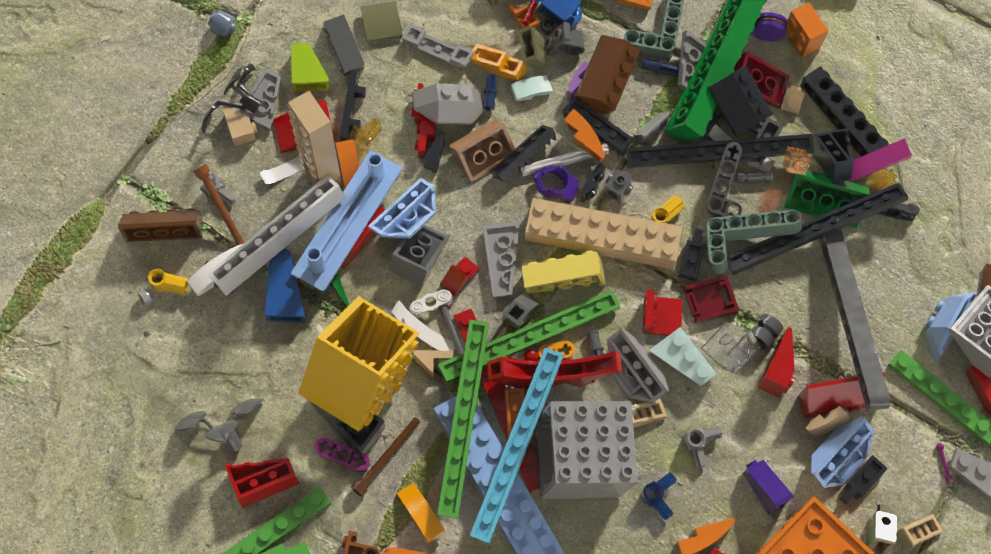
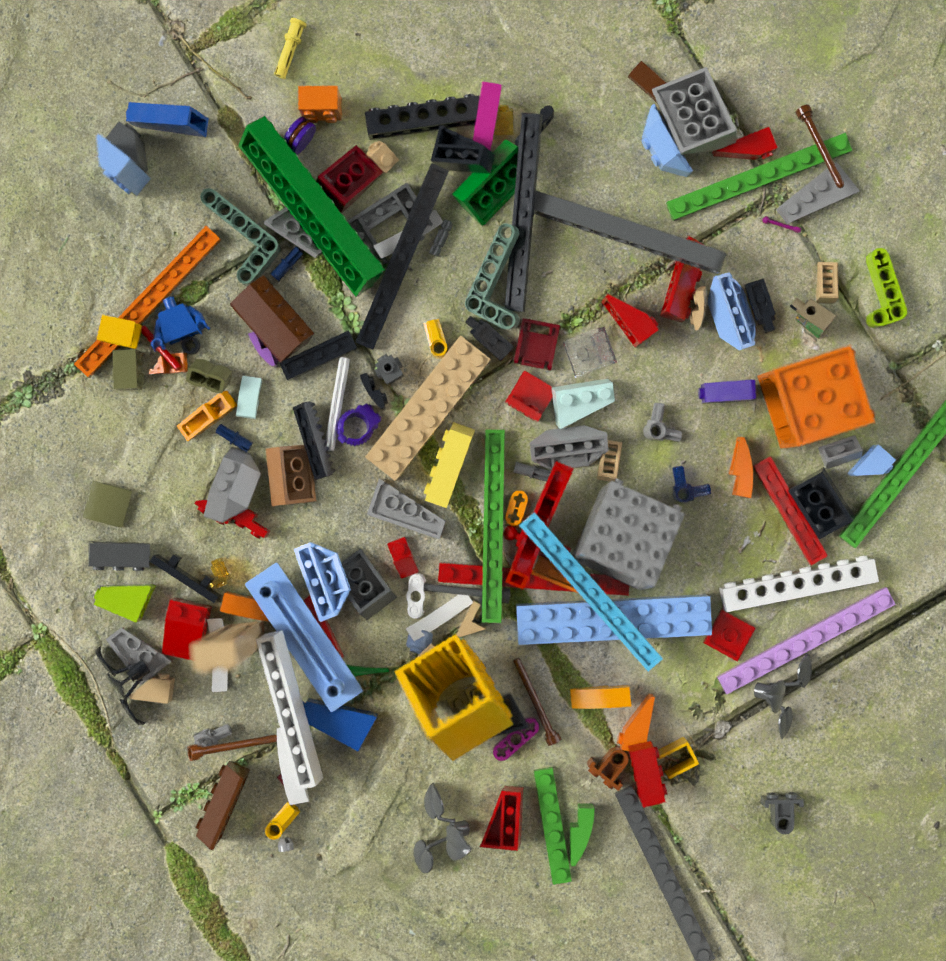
camera: 55 degrees left, 20 degrees up
(221, 23) = (36, 658): sand blue head -> none
(434, 154) = (274, 523): black slope -> none
(435, 48) = (162, 465): light grey slope -> none
(463, 420) = (543, 625): bright green plate -> none
(520, 311) = (464, 520): dark grey slope -> none
(565, 41) = (216, 340): dark grey pin -> none
(584, 135) = (327, 375): orange slope -> none
(652, 127) = (343, 305): light grey slope -> none
(727, 180) = (435, 267): dark grey beam -> none
(740, 101) = (367, 213): black slope -> none
(766, 329) = (592, 314): dark grey wheel -> none
(797, 160) = (451, 193): clear orange brick -> none

